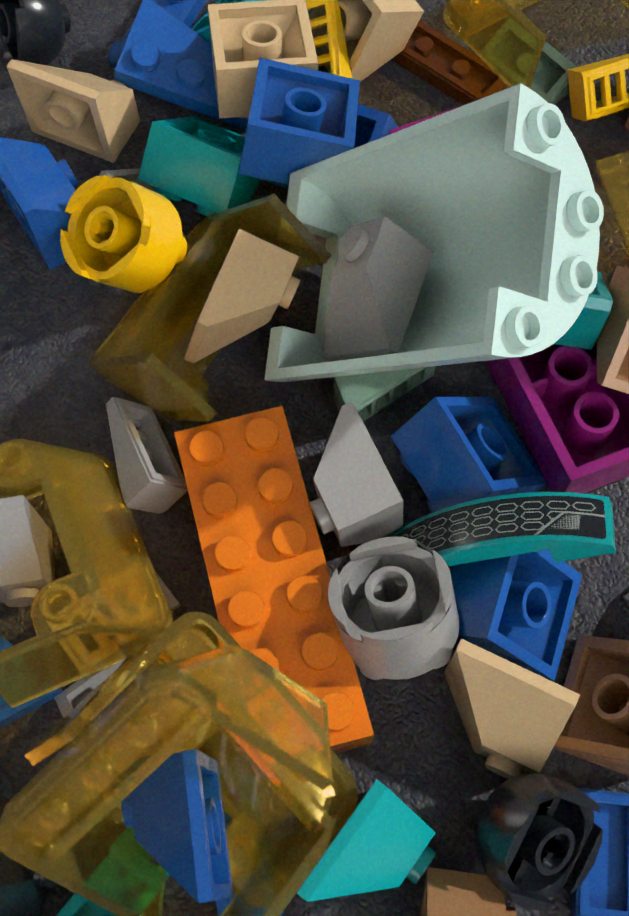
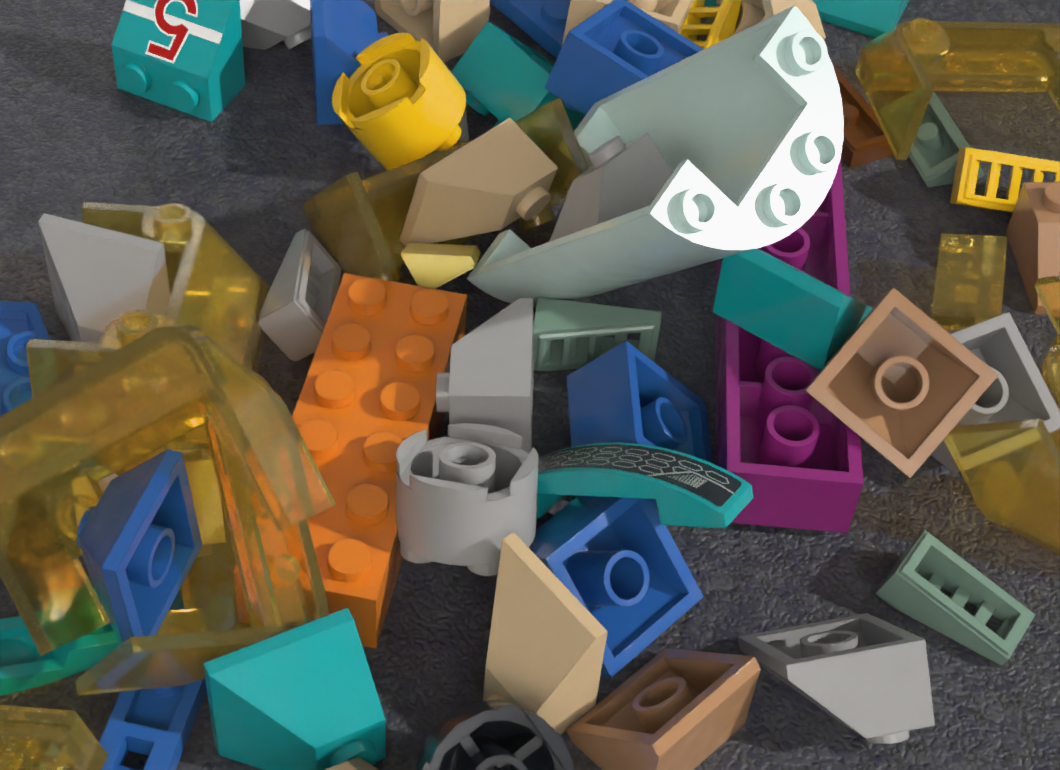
camera: 20 degrees right, 20 degrees down
(233, 372) = (438, 263): none -> light yellow slope

